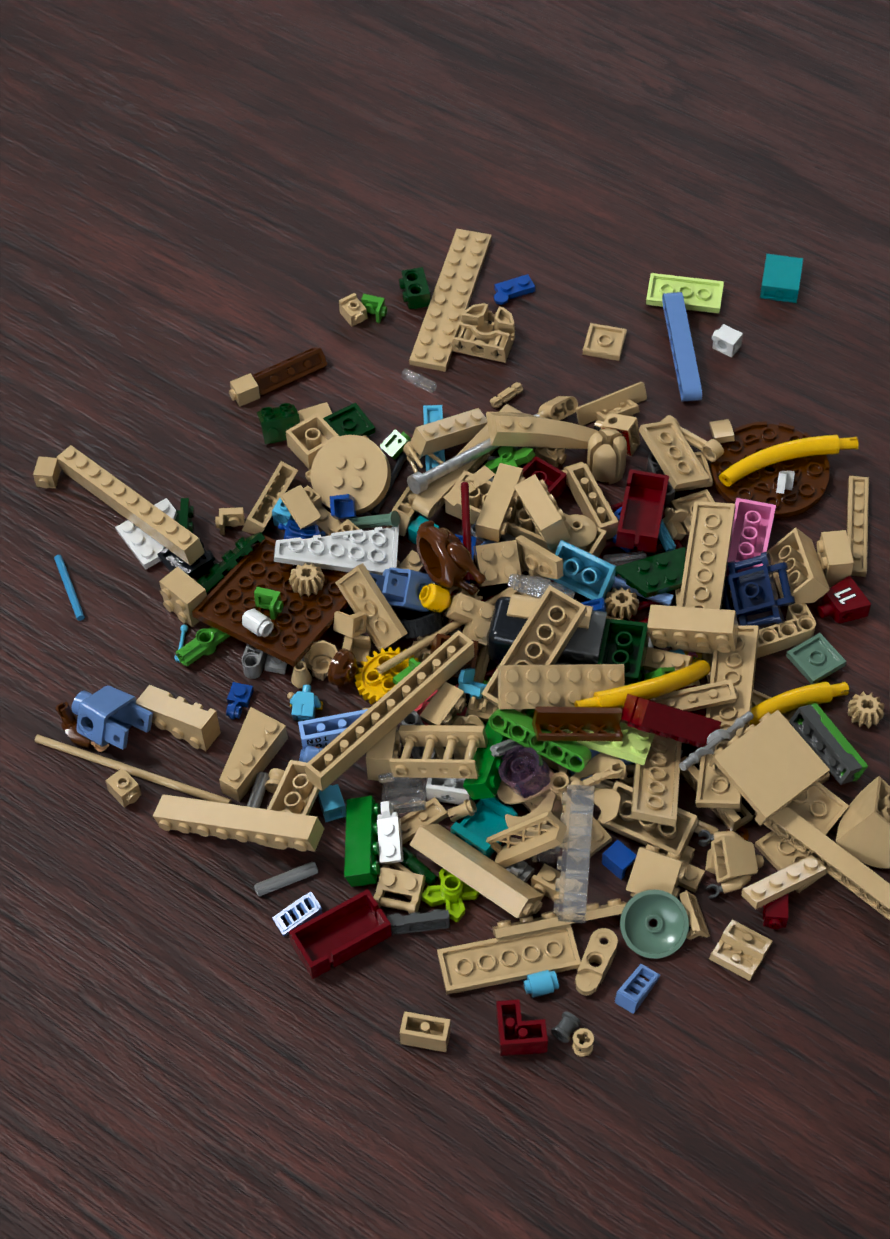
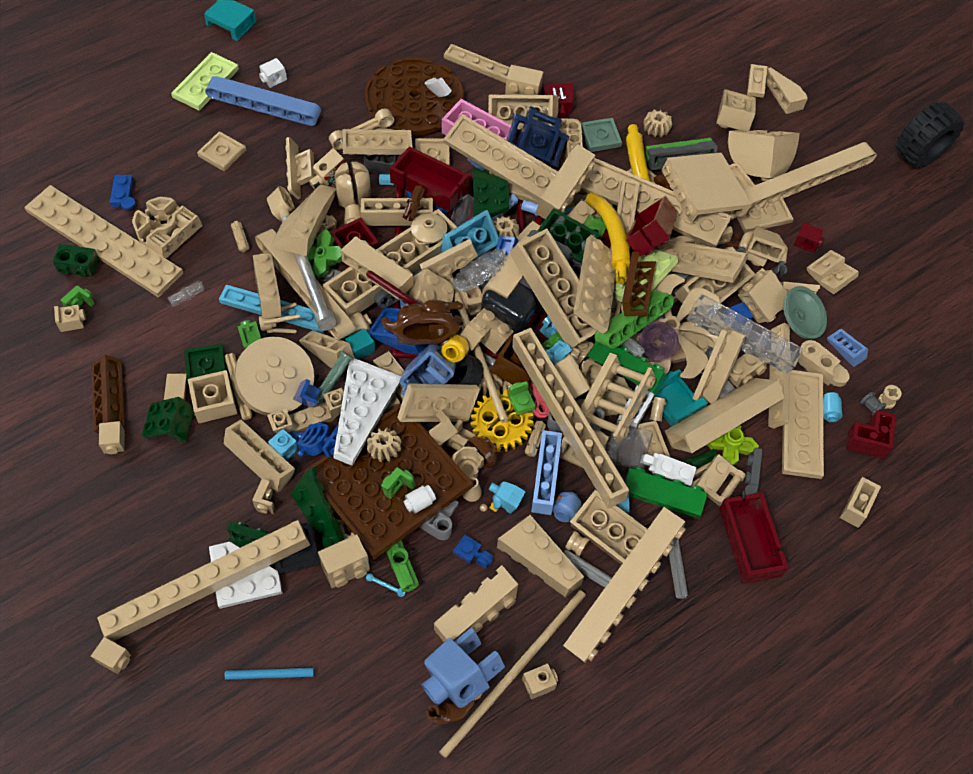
camera: 75 degrees left, 5 degrees up
(294, 908) = (721, 559): slope -> none
(301, 507) = (293, 426): tan slope -> none
(446, 519) = (360, 322): none -> tan head
(474, 482) = (341, 286): tan piece -> none
(543, 511) = (411, 236): tan brick -> none
(597, 505) = (414, 203): none -> reddish brown axle
(608, 773) = (683, 309): tan piece -> none
(714, 739) = (678, 207): light grey piece -> none
(722, 431) = (363, 107): tan slope -> none
(783, 882) = (794, 221): tan plate -> none
(785, 451) = (408, 78): yellow animal -> none

